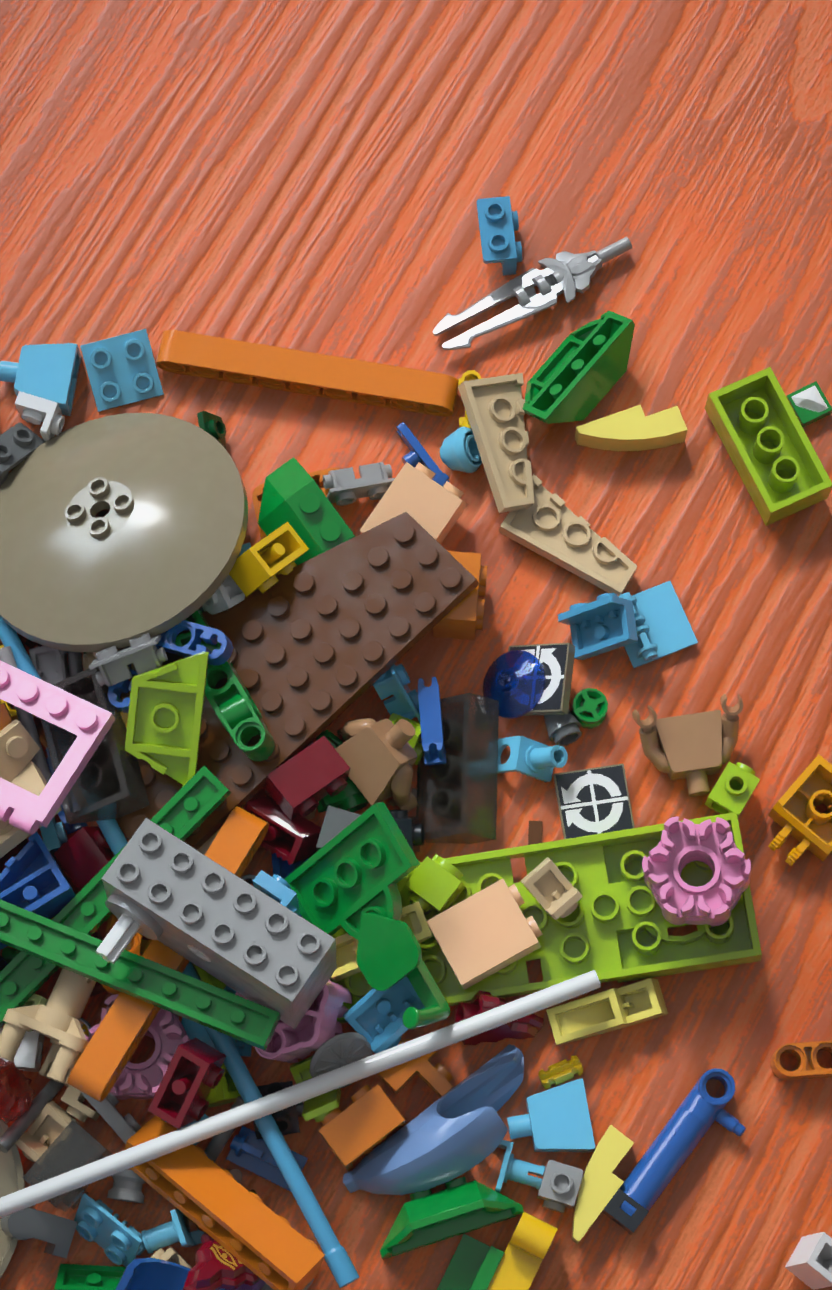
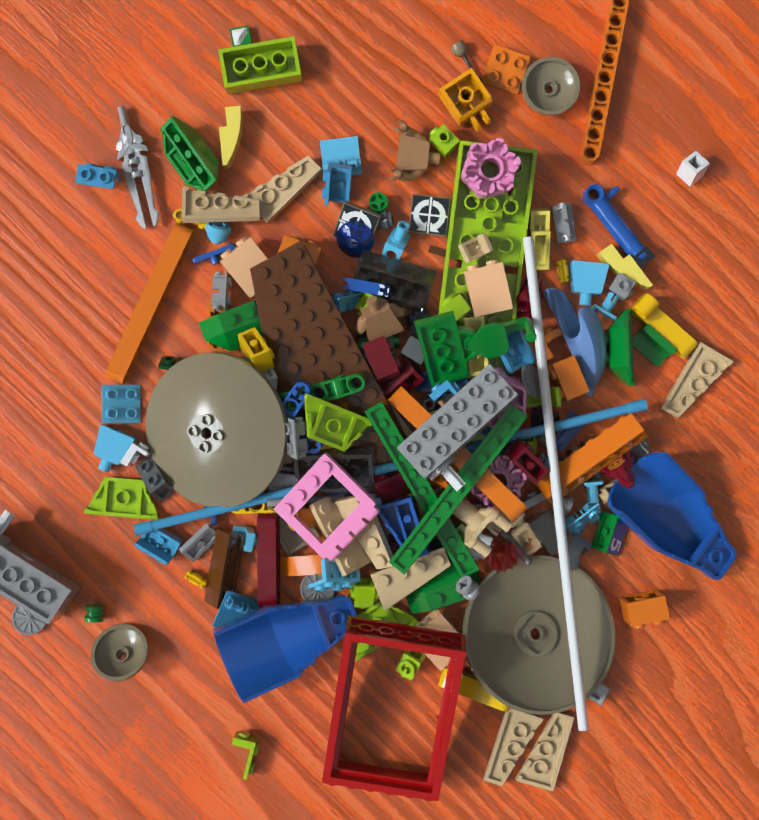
camera: 75 degrees left, 15 degrees up
(649, 1051) = (564, 223): none -> light grey hinge

